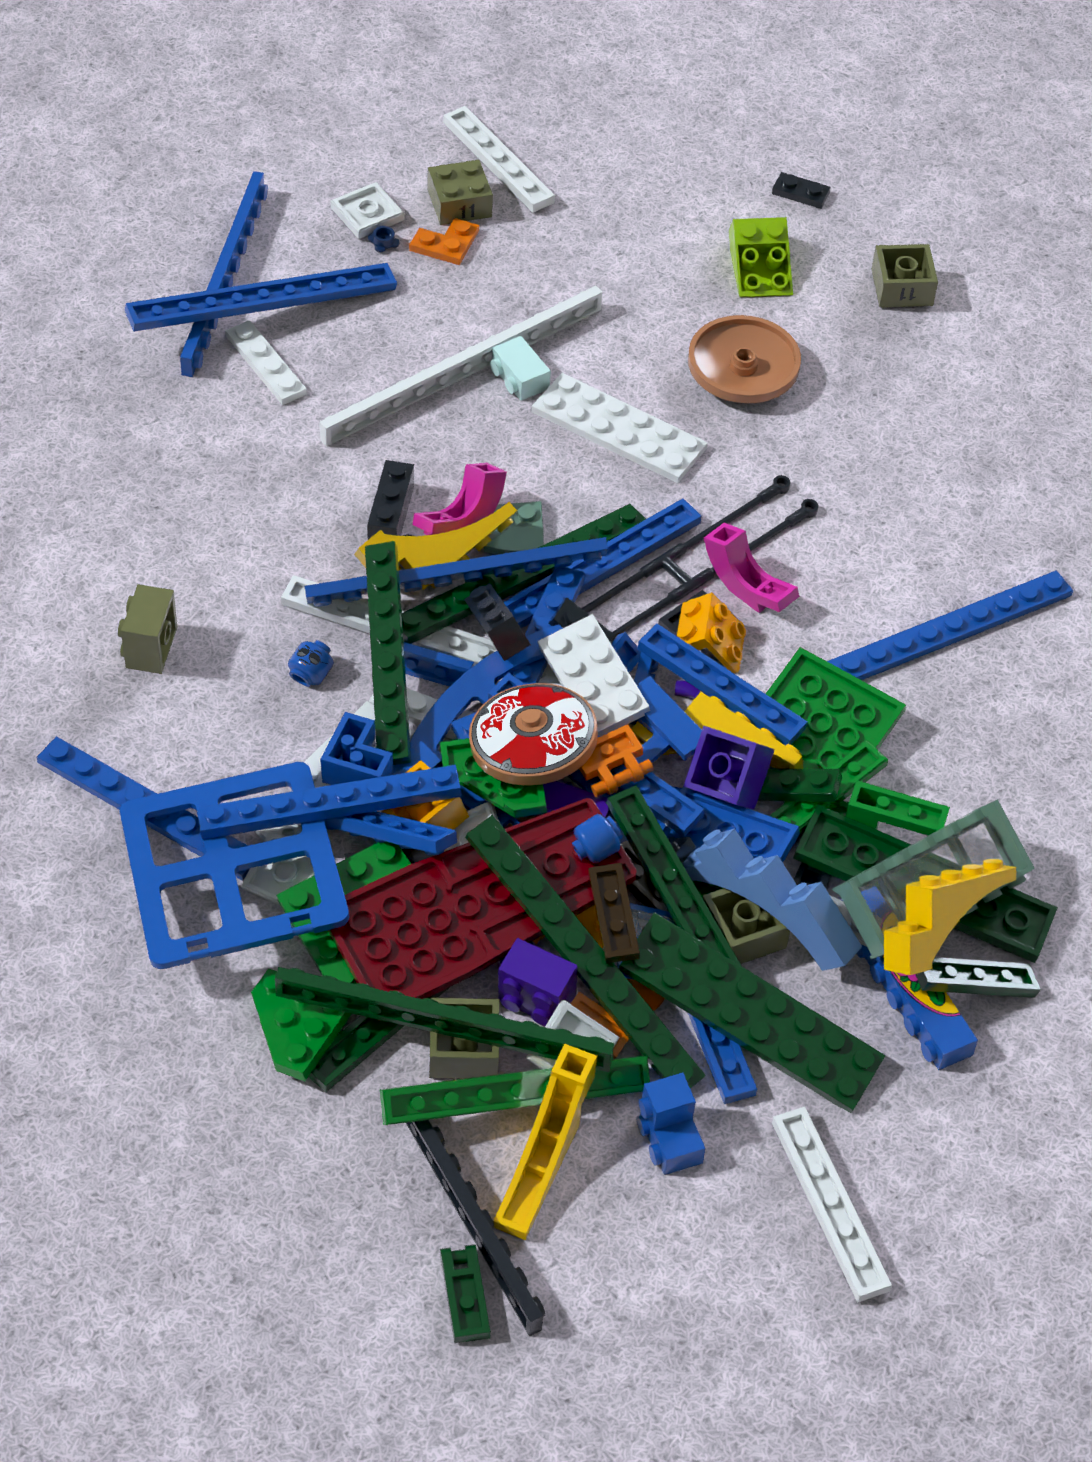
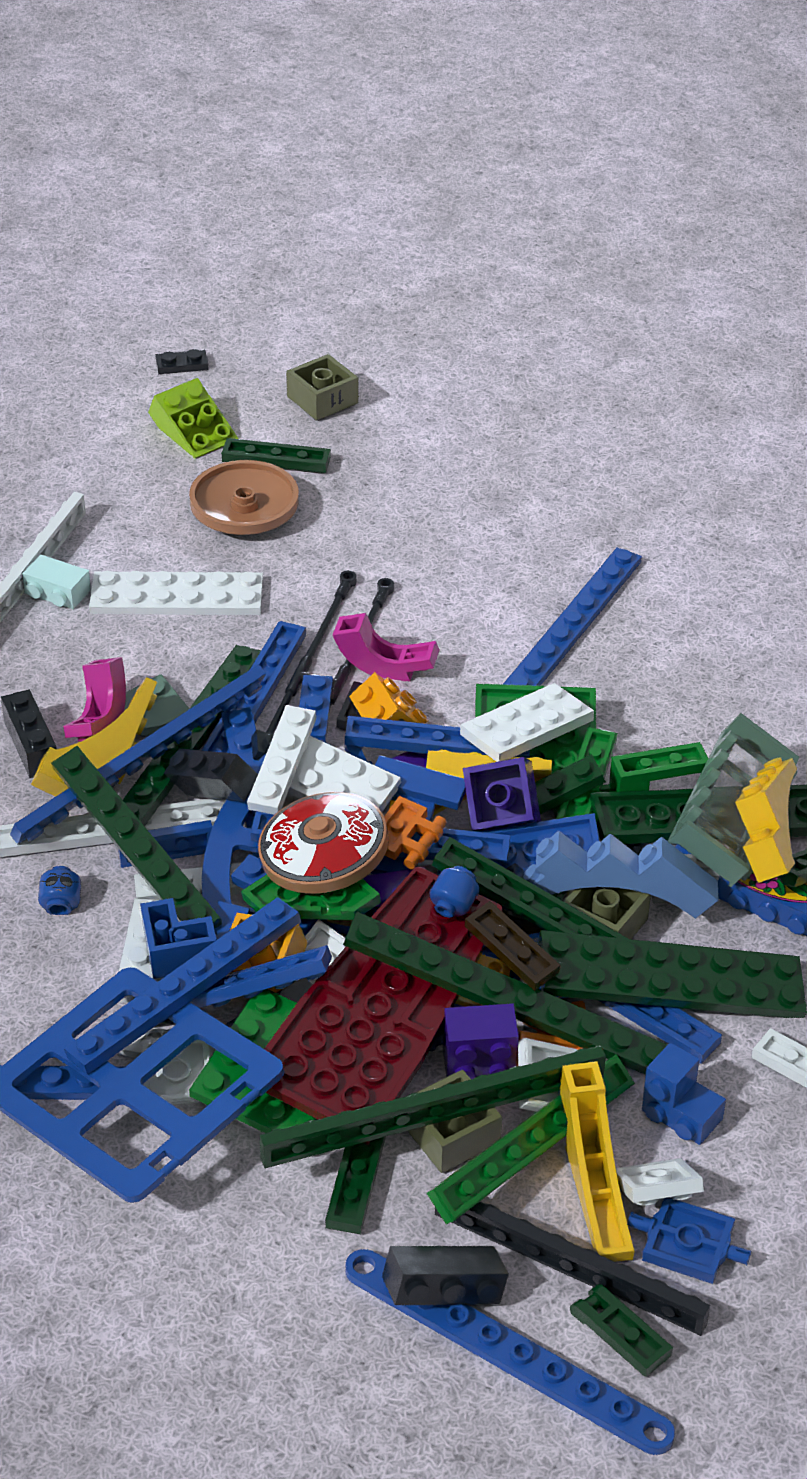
camera: 30 degrees left, 10 degrees down
(294, 1029) = (295, 1192): green plate -> none
(351, 1166) = (444, 1275): none -> black brick
(364, 1259) = (525, 1362): none -> blue plate
(557, 638) = (282, 760): none -> white plate
(581, 1250) = (688, 1239): none -> blue plate
(591, 1186) = (659, 1180): none -> white plate
(646, 600) = (316, 696): none -> blue plate
(809, 708) = (526, 722): none -> white plate
(811, 328) = (280, 455): none -> dark green plate

